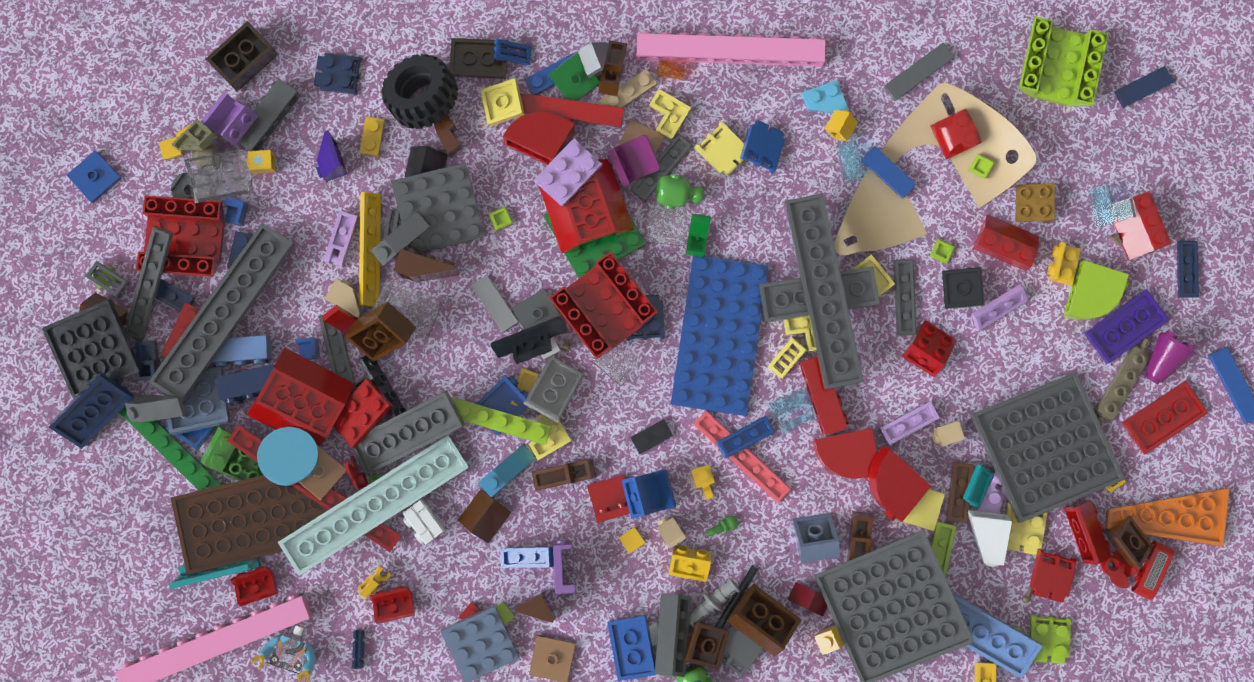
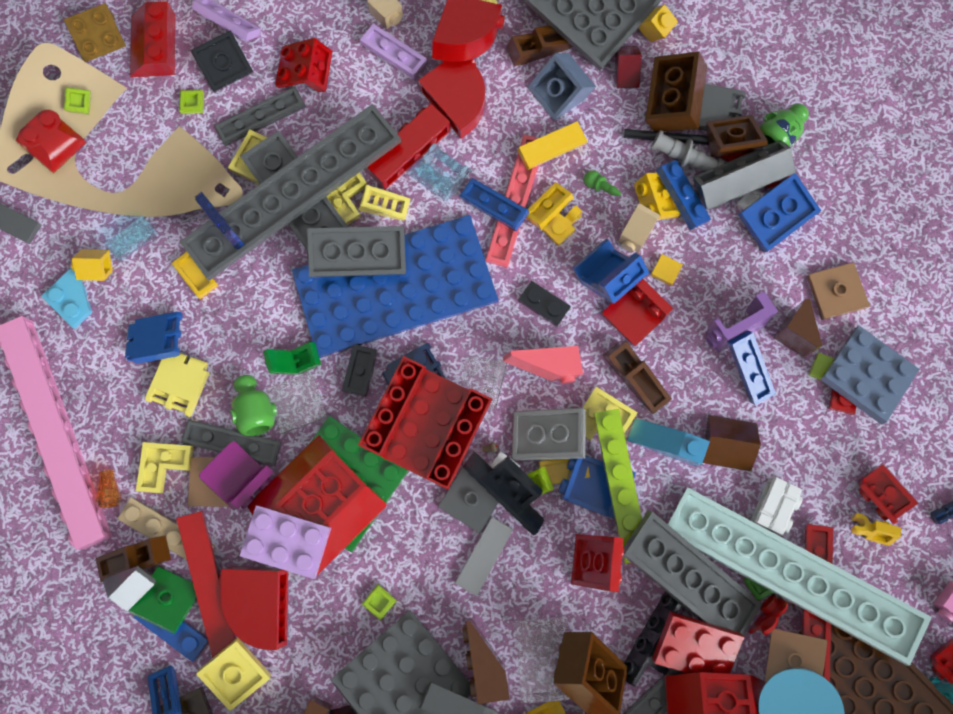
camera: 110 degrees left, 5 degrees down
(449, 374) = (597, 562): none -> red plate
(525, 367) = (542, 479): none -> lime tile
(602, 417) = (553, 364): none -> coral slope
(667, 279) = (359, 370): none -> black plate
(682, 583) = (683, 194): none -> blue plate
(724, 477) = (549, 205): none -> yellow plate
(754, 316) = (356, 251): none -> dark grey plate
(770, 505) = (552, 145): none -> yellow tile
(799, 191) = (193, 275): none -> yellow tile
(818, 226) = (218, 220): none -> clear blue tile
(888, 172) = (126, 192): blue tile -> none

